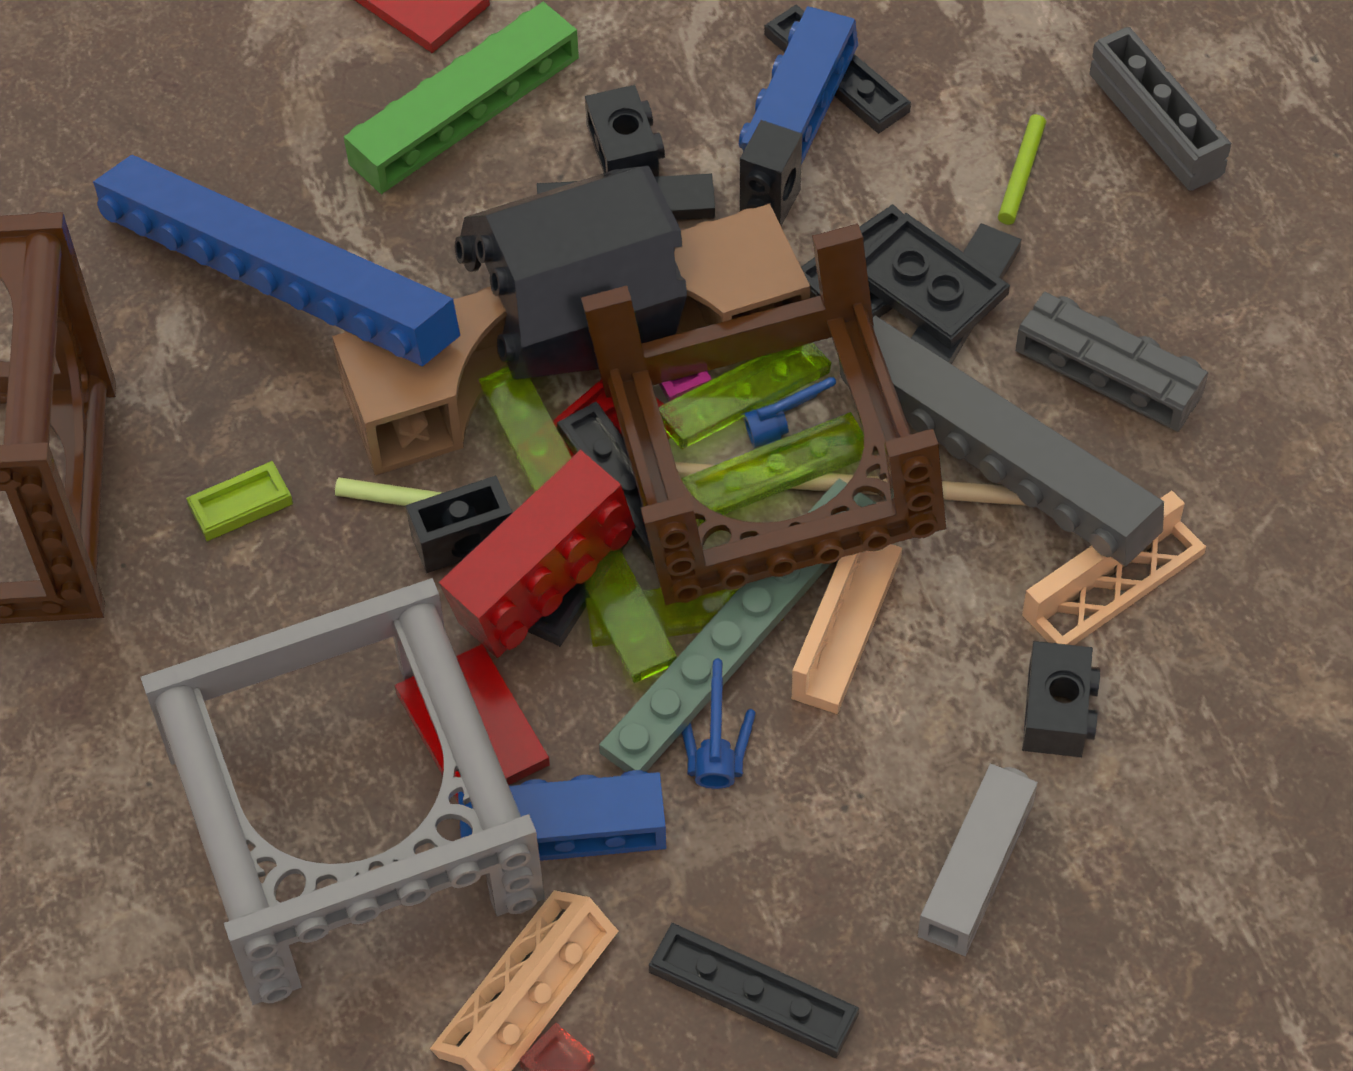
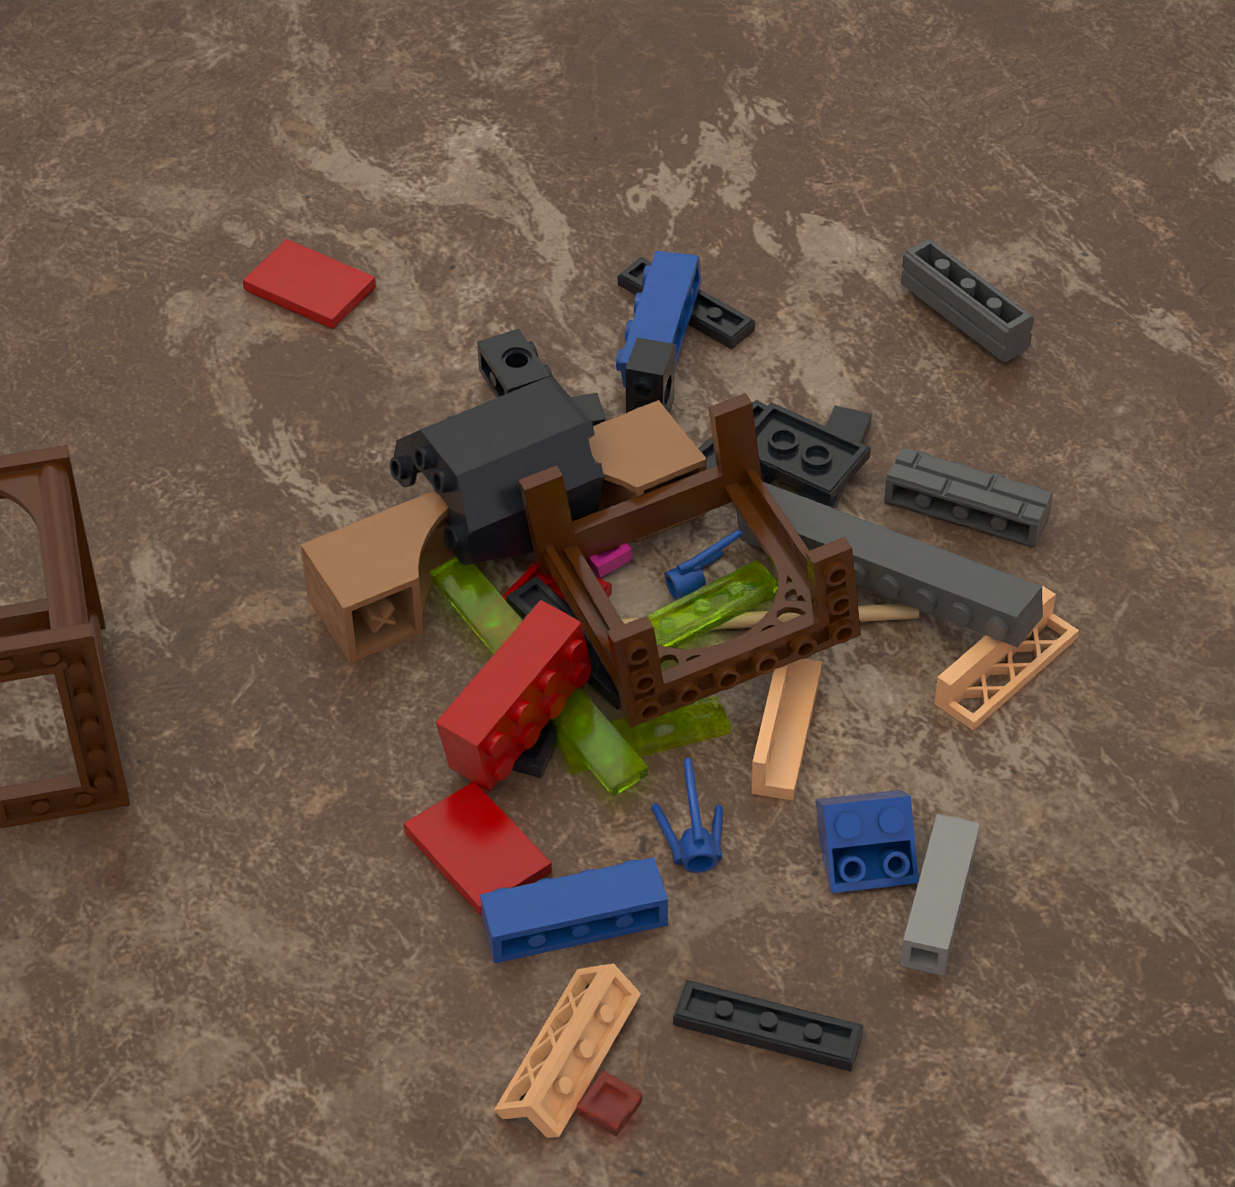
camera: 10 degrees left, 10 degrees down
(239, 501) = (234, 696): lime tile -> none
(259, 925) = (335, 1013): light grey arch -> none
(279, 260) = (242, 492): blue brick -> none
(380, 492) = (385, 675): yellowish green bar -> none
(456, 521) = (431, 684): black brick -> none
(461, 97) = (367, 358): bright green brick -> none
(687, 682) = (664, 783): sand green plate -> none
(740, 391) = (664, 551): clear neon green tile -> none
(908, 780) = (867, 840): none -> blue slope
(1022, 169) = (859, 362): lime bar -> none
(1053, 725) = (982, 761): black brick -> none

